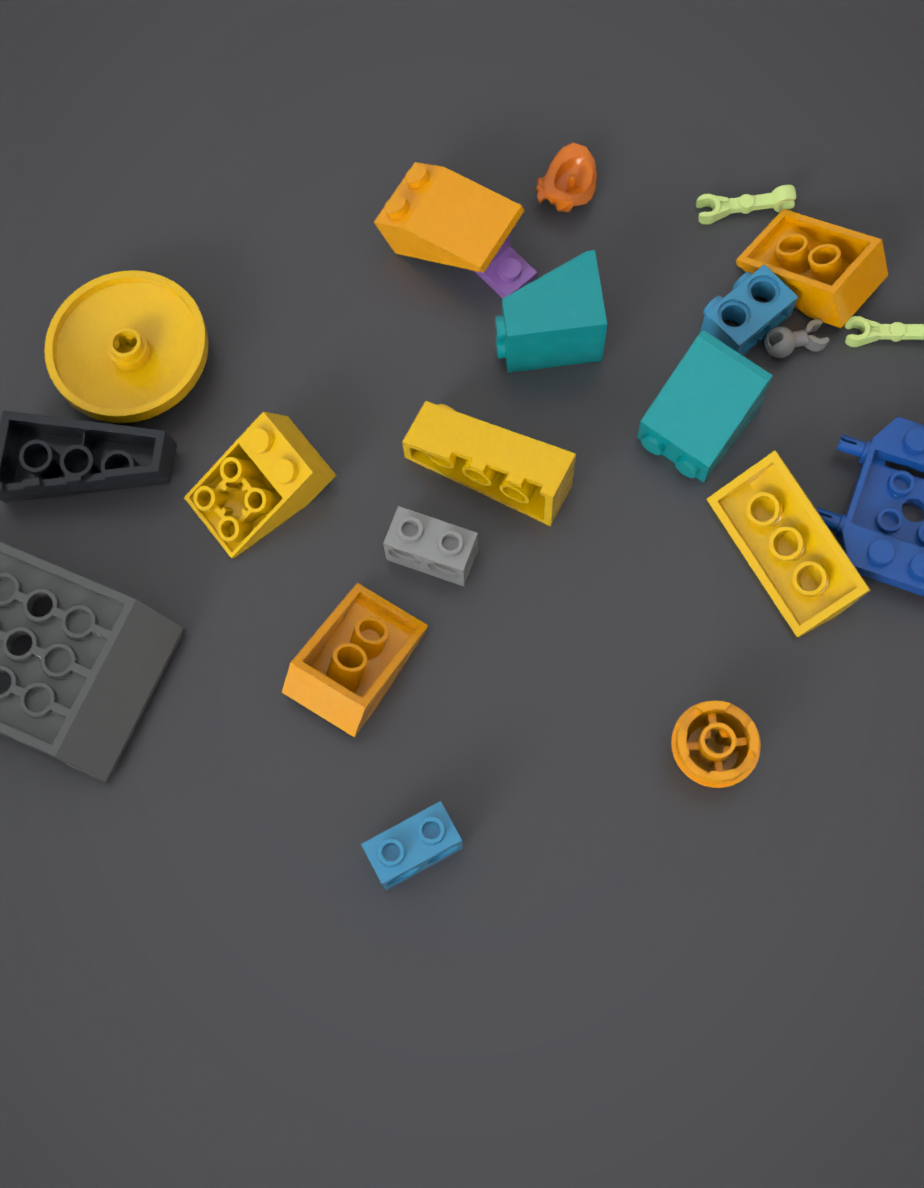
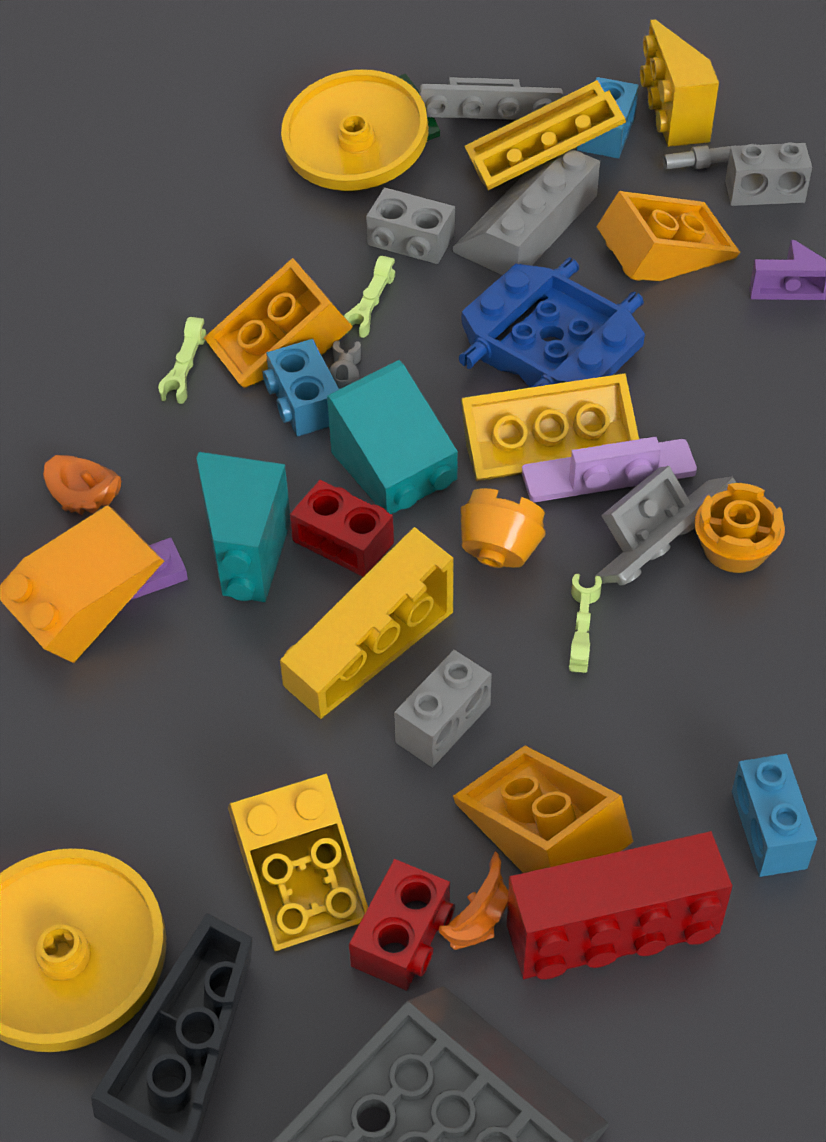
camera: 75 degrees left, 20 degrees down
(226, 568) = (392, 922): none -> red brick
(248, 635) = (485, 909): none -> orange hat
(268, 727) = (617, 905): none -> red brick
(539, 642) = (581, 644): none -> yellowish green piece
(591, 402) = (342, 527): none -> red brick
(633, 533) = (500, 530): none -> light orange cone
(709, 667) = (651, 519): none -> light grey bracket
(760, 613) = (606, 468): none -> lavender bracket

